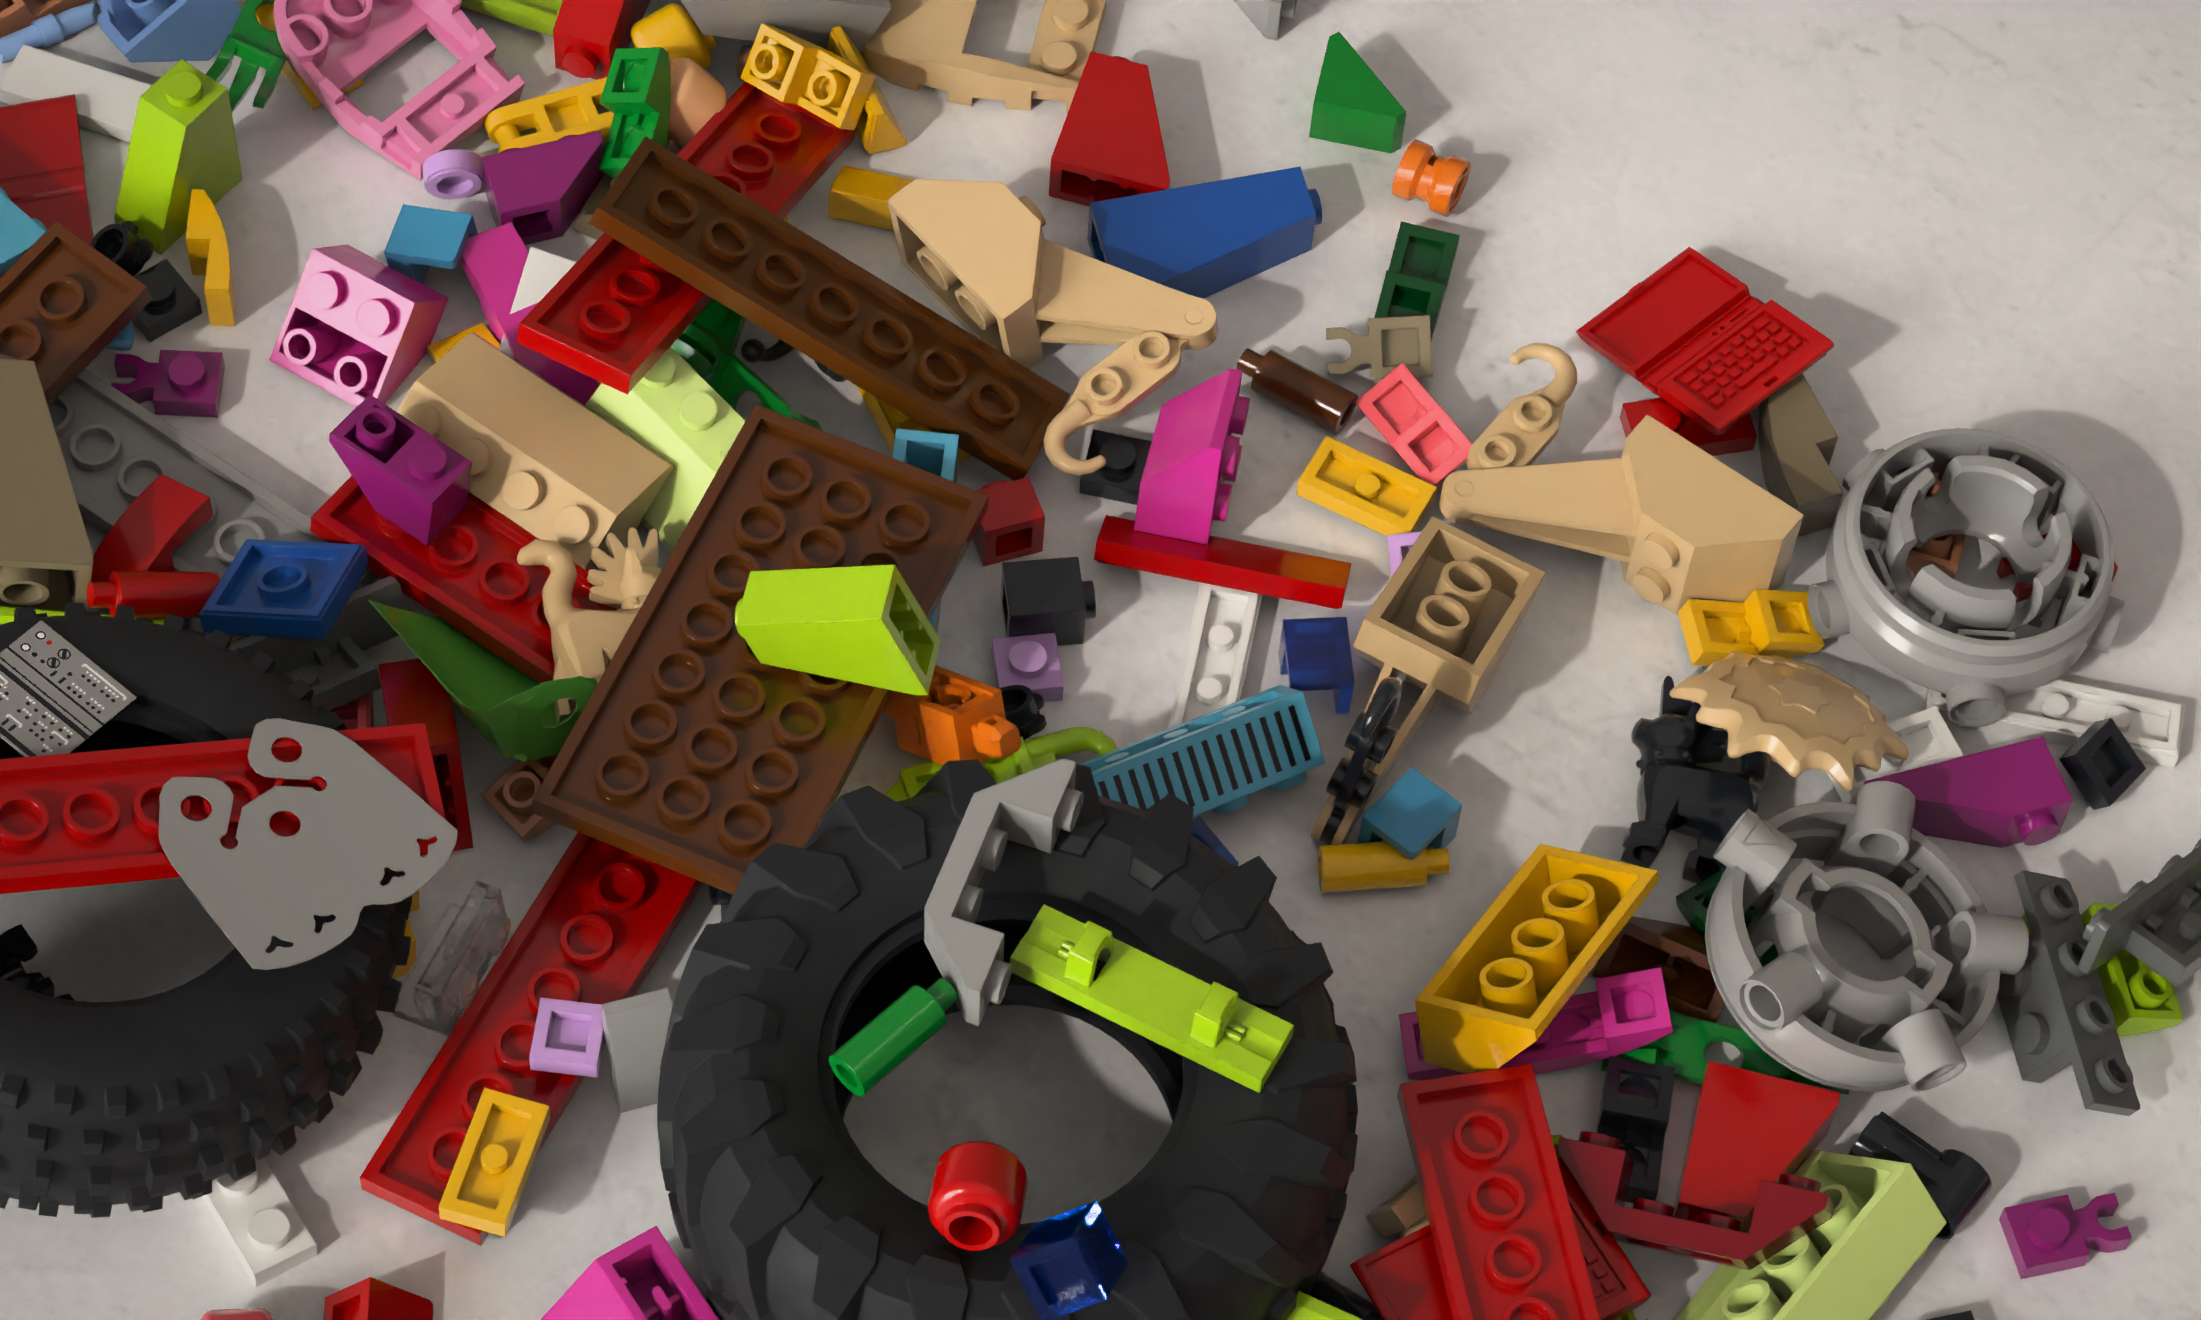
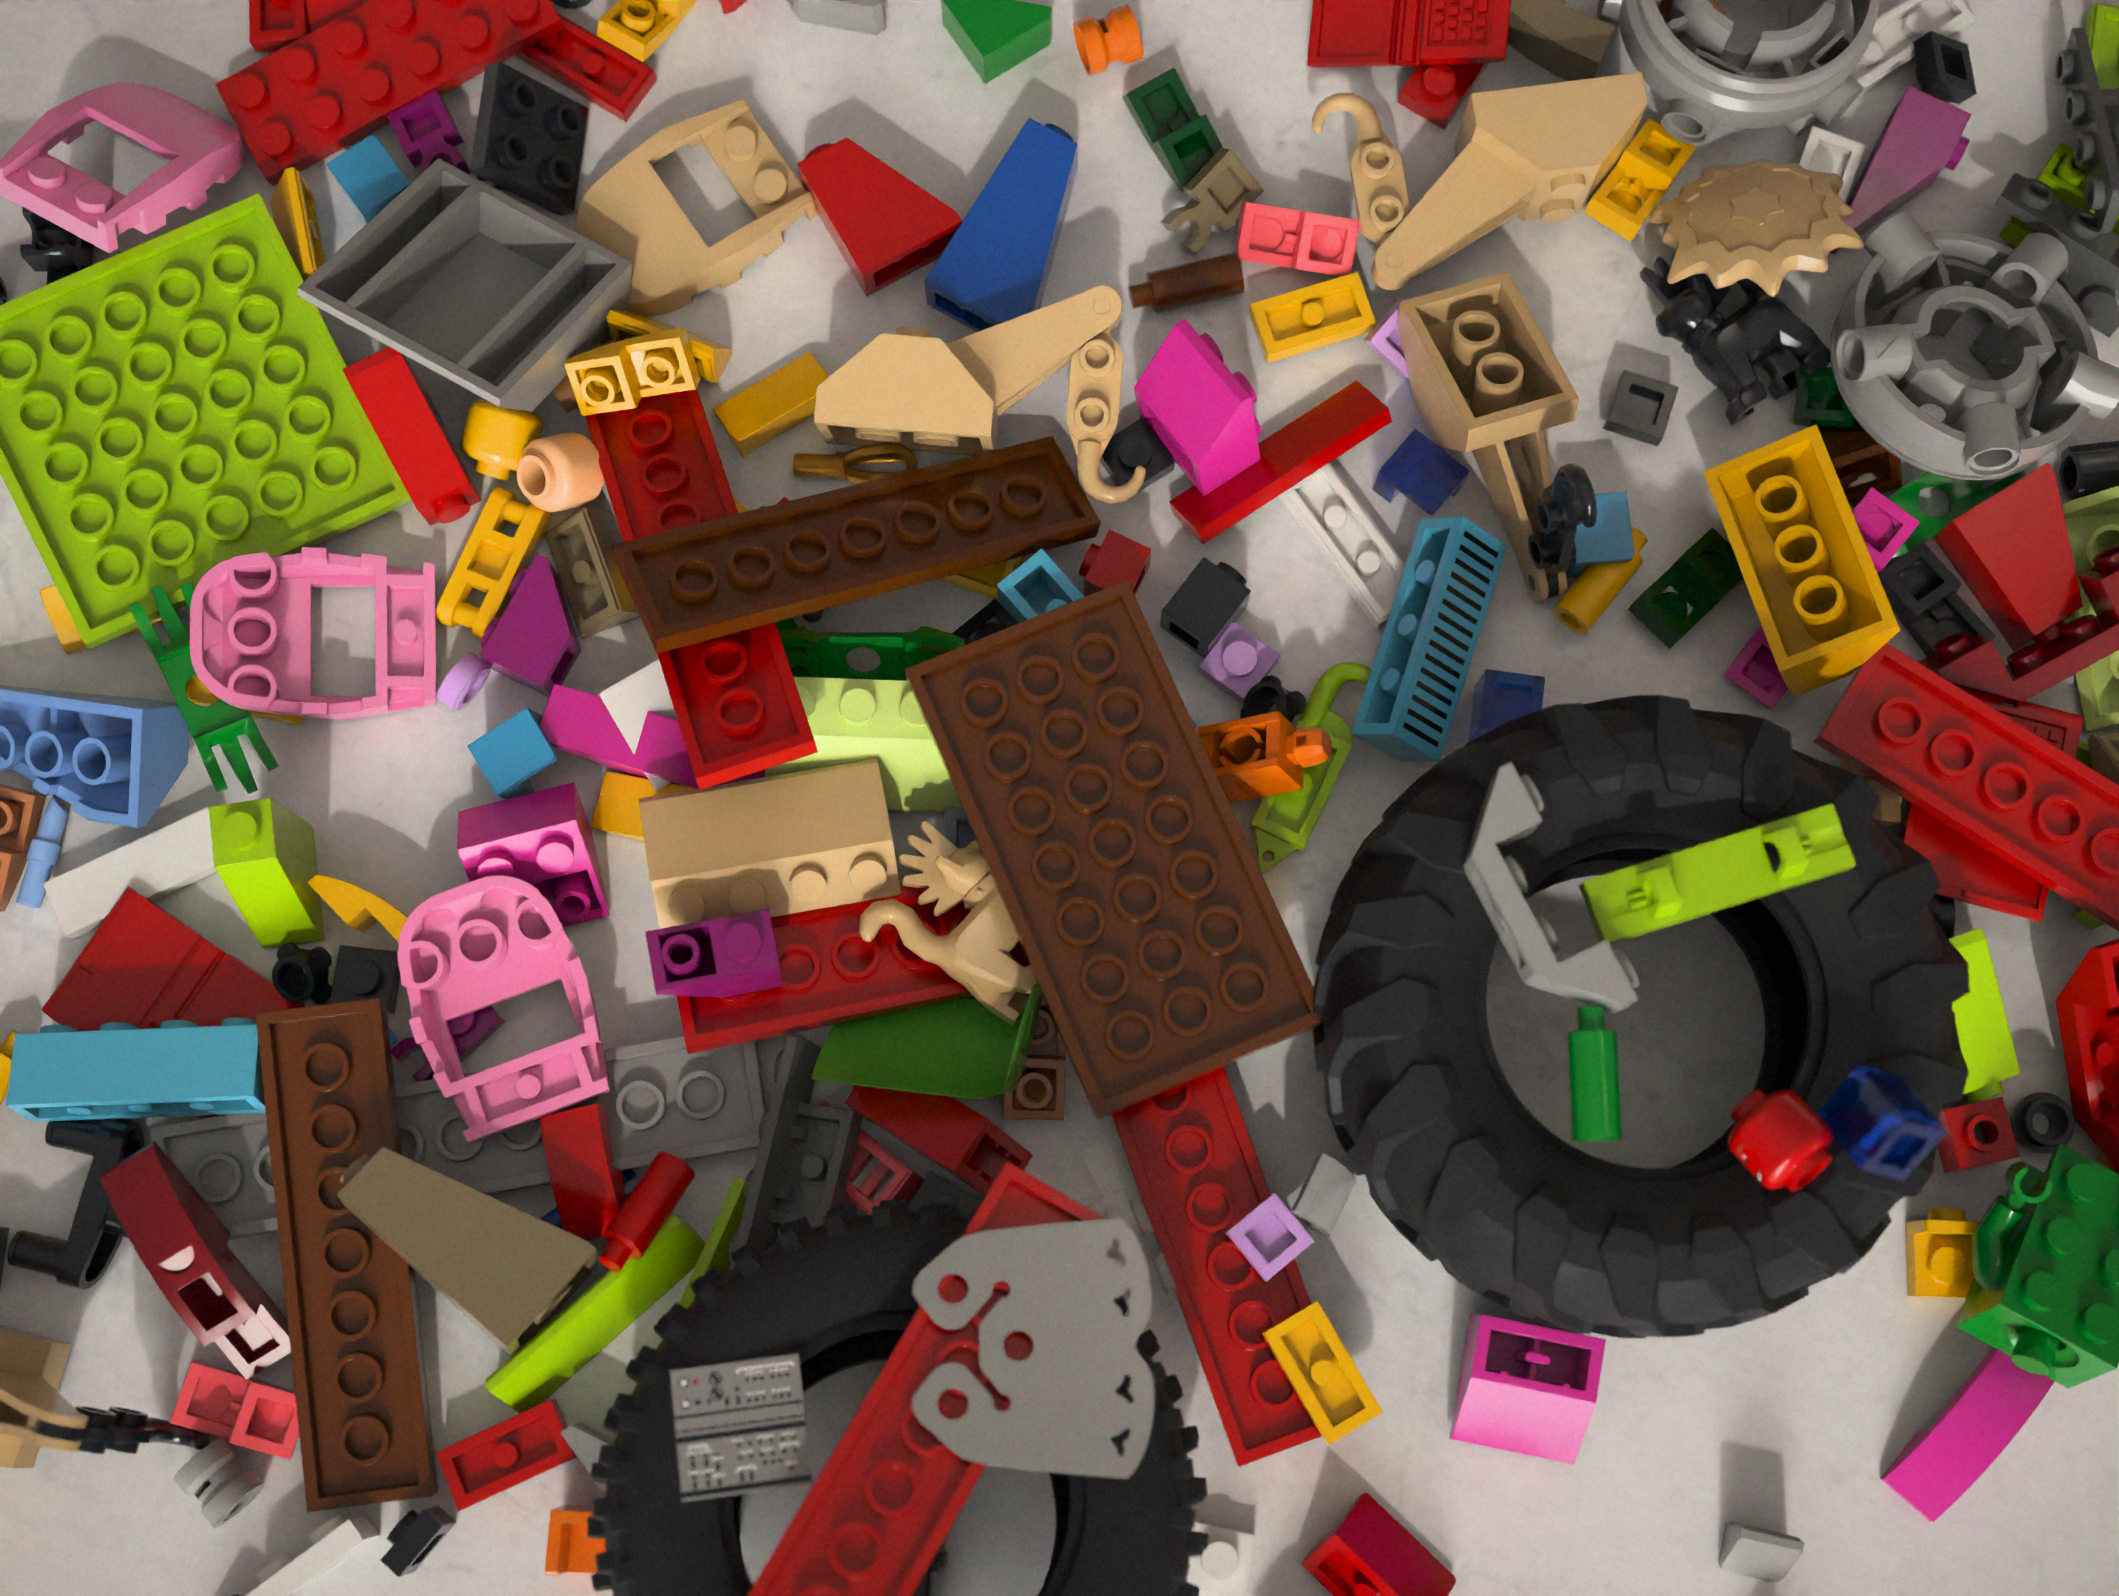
camera: 40 degrees left, 20 degrees up
(243, 331) = (476, 951): none -> bright pink slope
(284, 588) = (730, 1120): blue tile -> none
(640, 99) = (543, 503): green slope -> none
(840, 625) = (1160, 789): lime slope -> none
(873, 262) = (840, 464): none -> pearl gold piece
(1422, 933) = (1688, 589): none -> dark green slope
(1555, 776) = (1640, 408): none -> black plate

